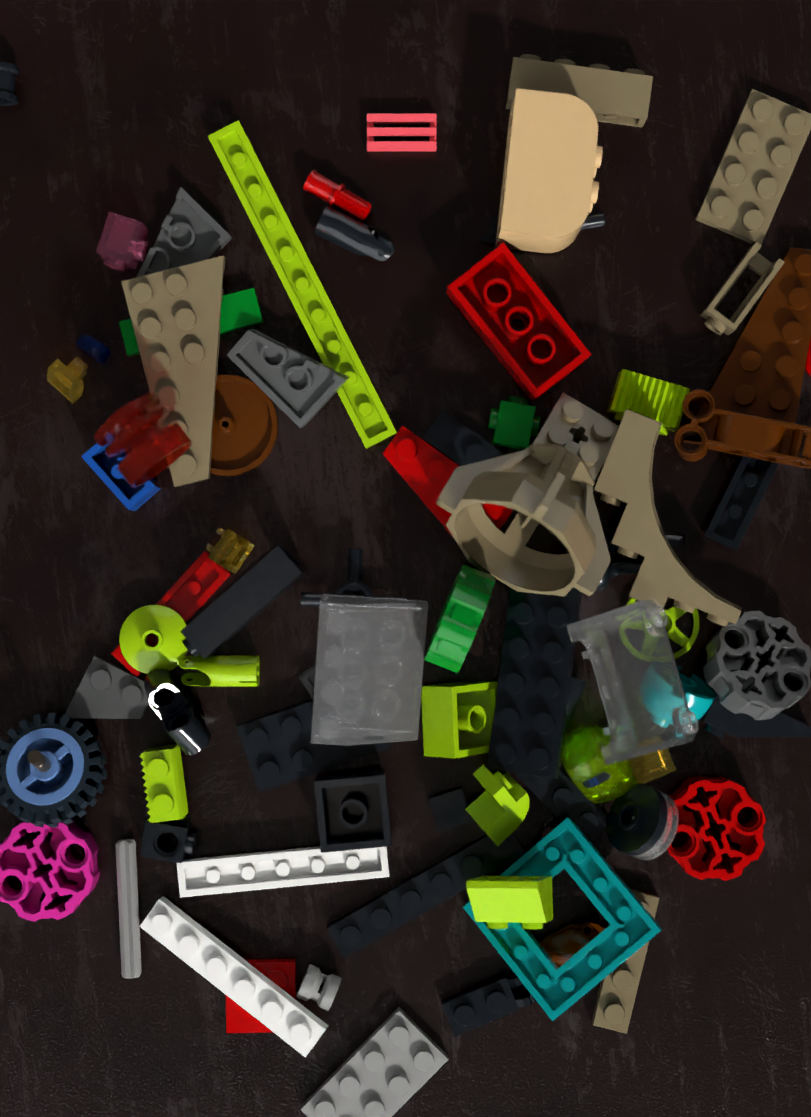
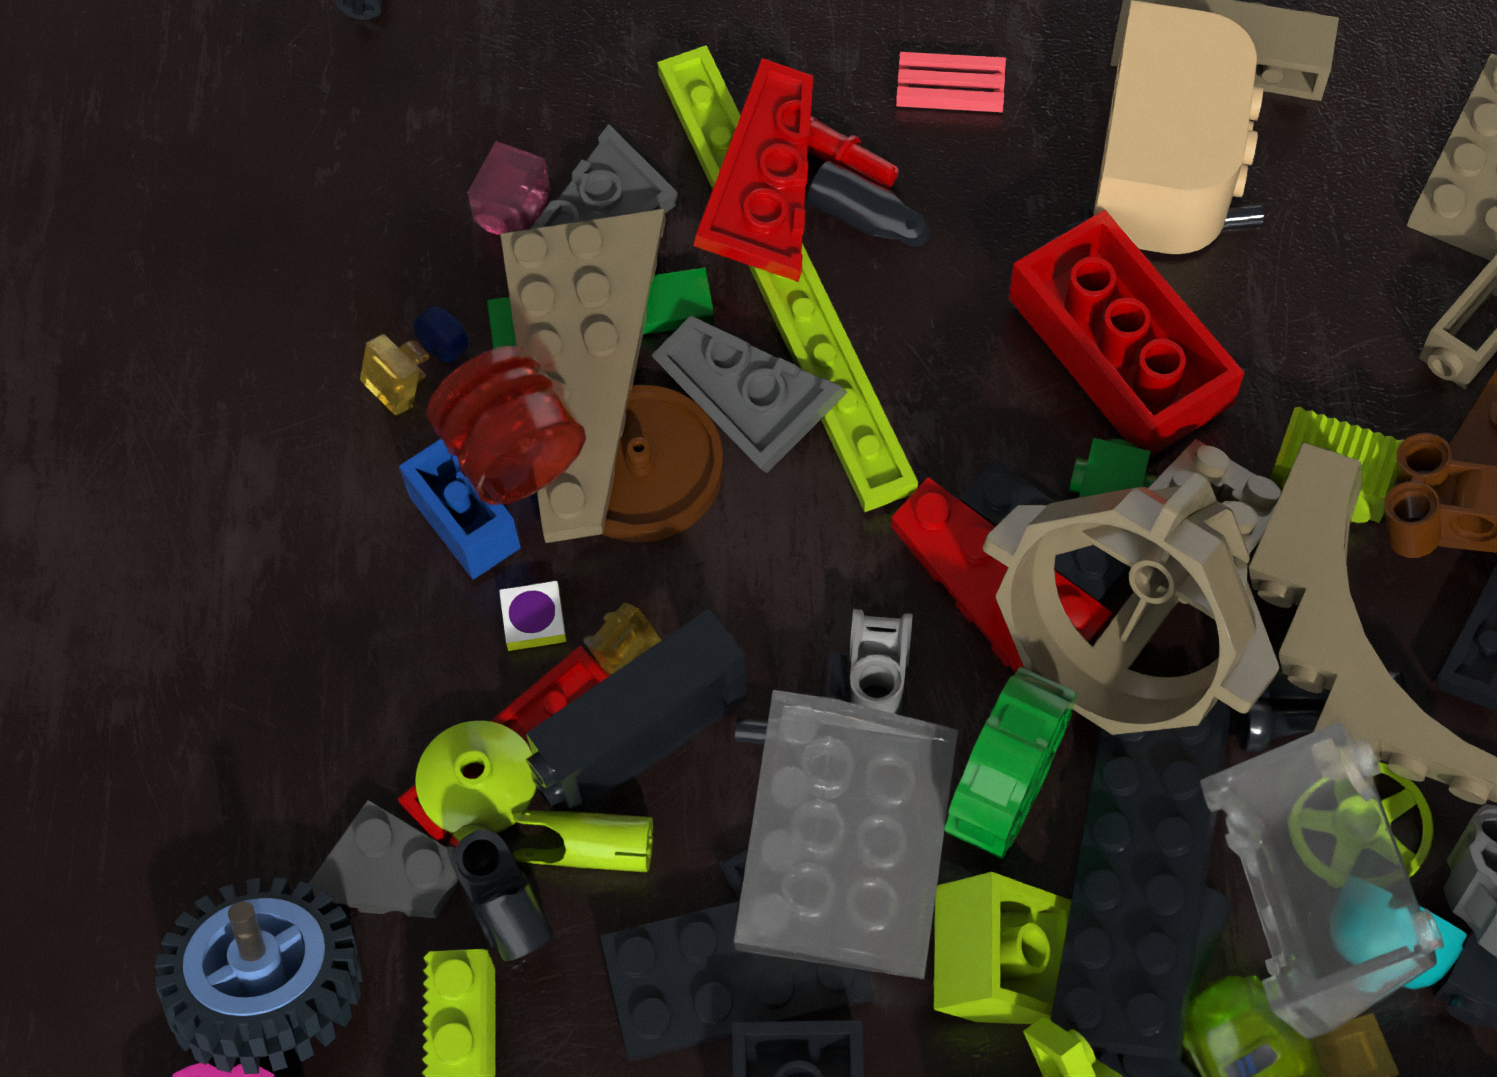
camera: 10 degrees right, 25 degrees down
(174, 532) = (532, 616): none -> tile
(284, 232) = (760, 189): none -> red wing
(380, 547) = (879, 659): none -> light grey piece

